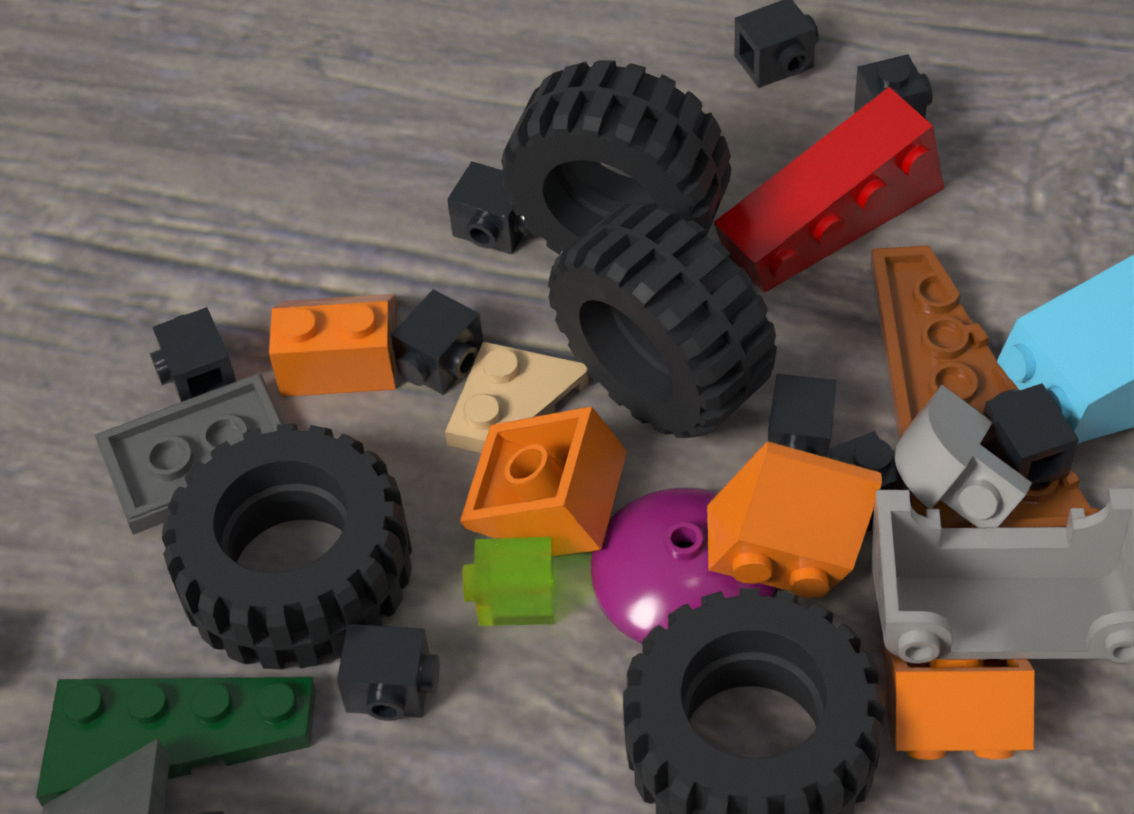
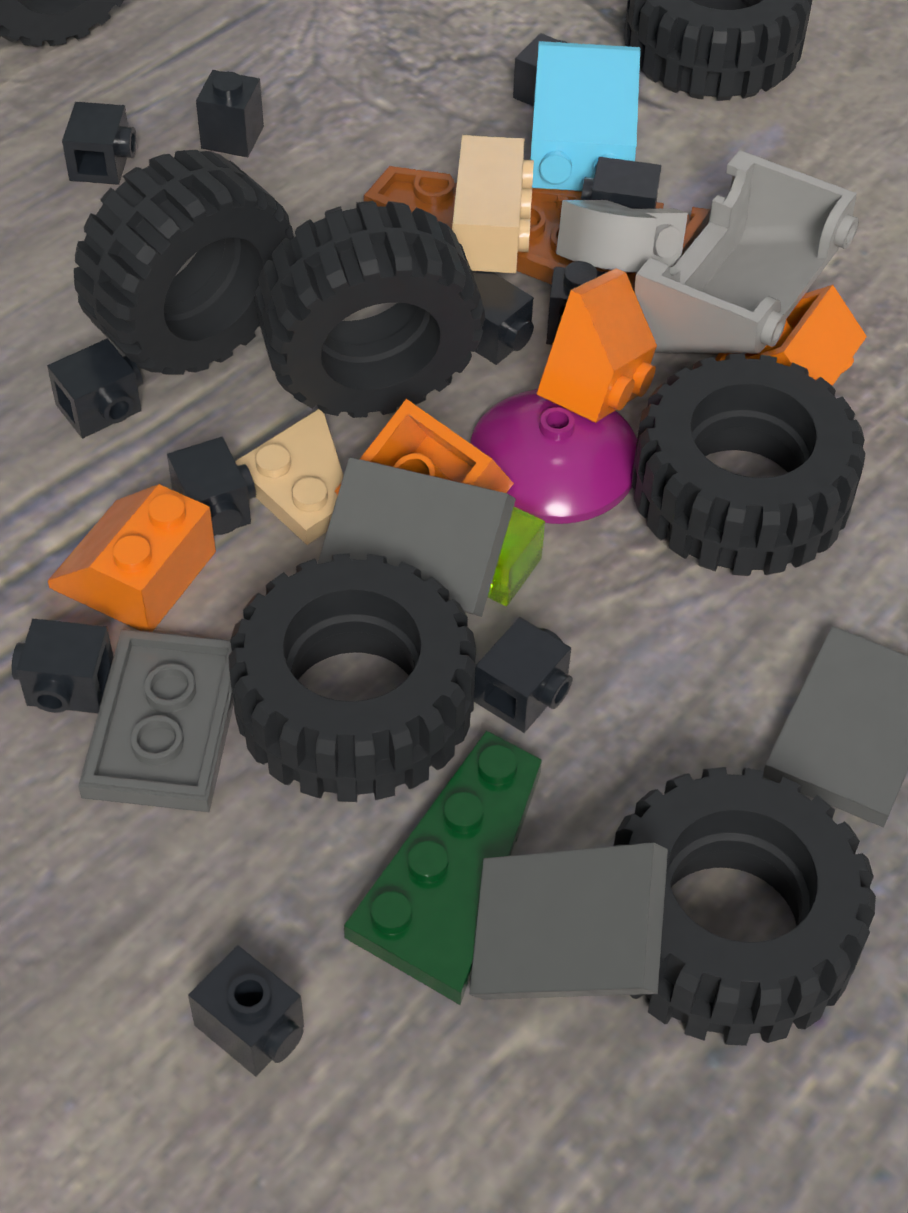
camera: 65 degrees left, 0 degrees up
(463, 506) = (424, 521): none -> dark grey tile
(834, 192) = (295, 148): red wedge -> none
(910, 336) = (493, 202): none -> tan brick

